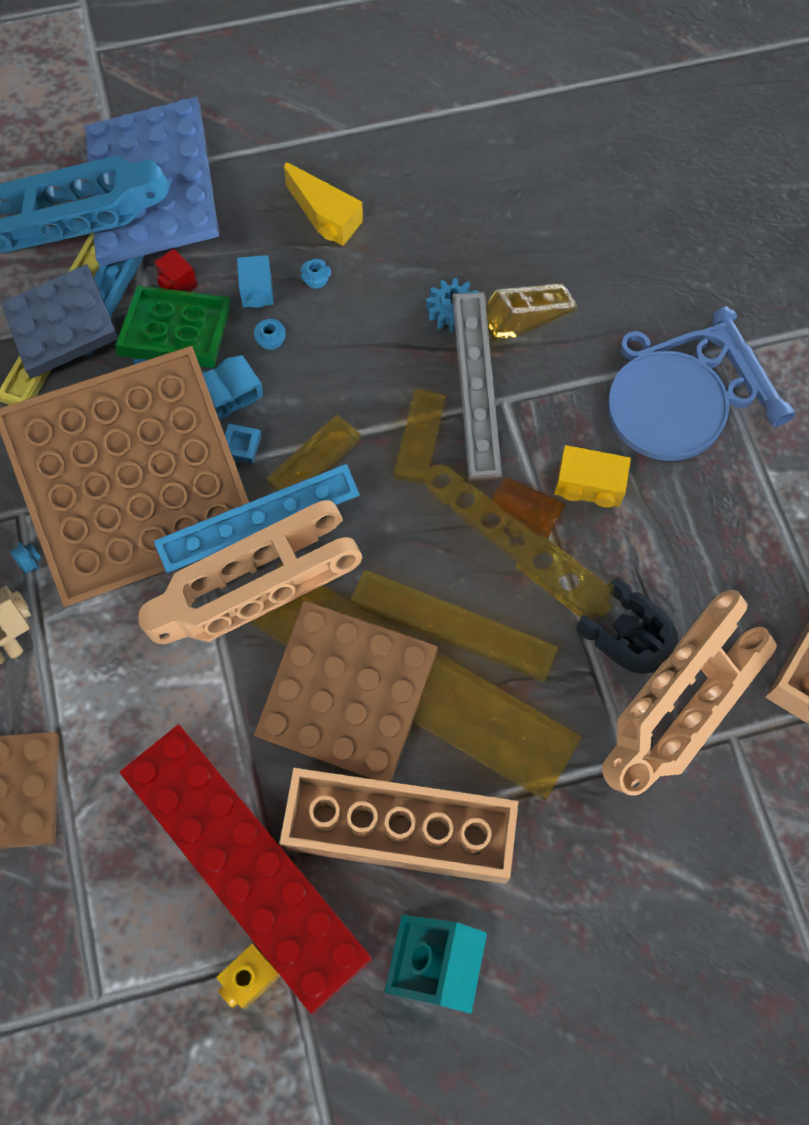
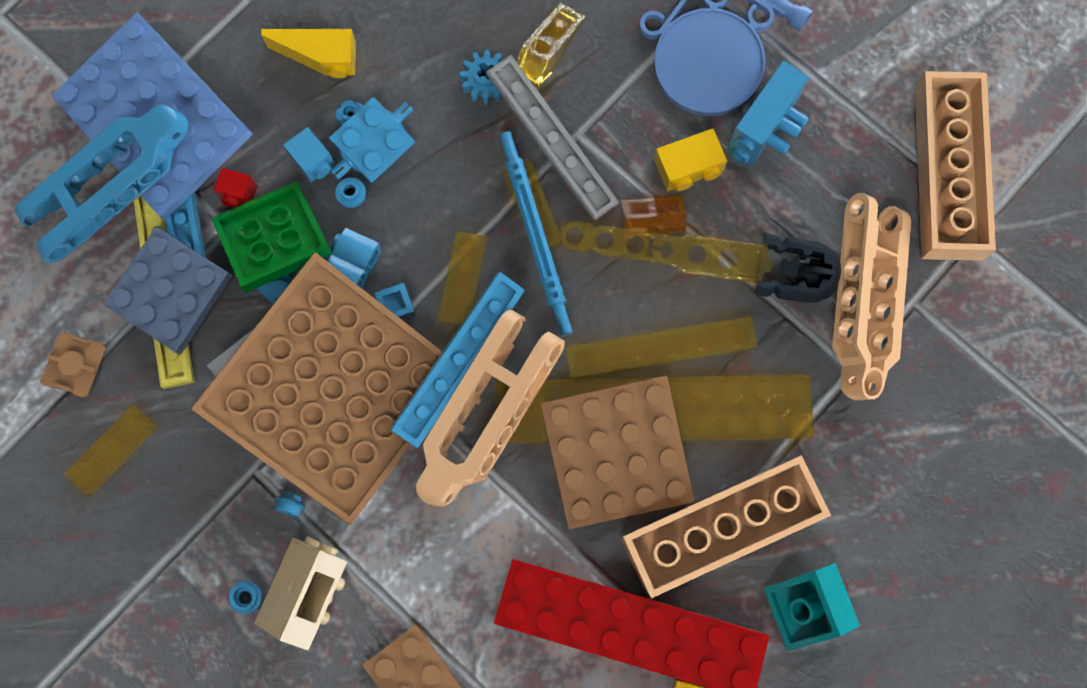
camera: 30 degrees left, 10 degrees up
(317, 301) = (371, 140): none -> dark azure plate
(404, 458) = (535, 232): none -> dark azure axle
(692, 475) = (769, 113): none -> dark azure piece

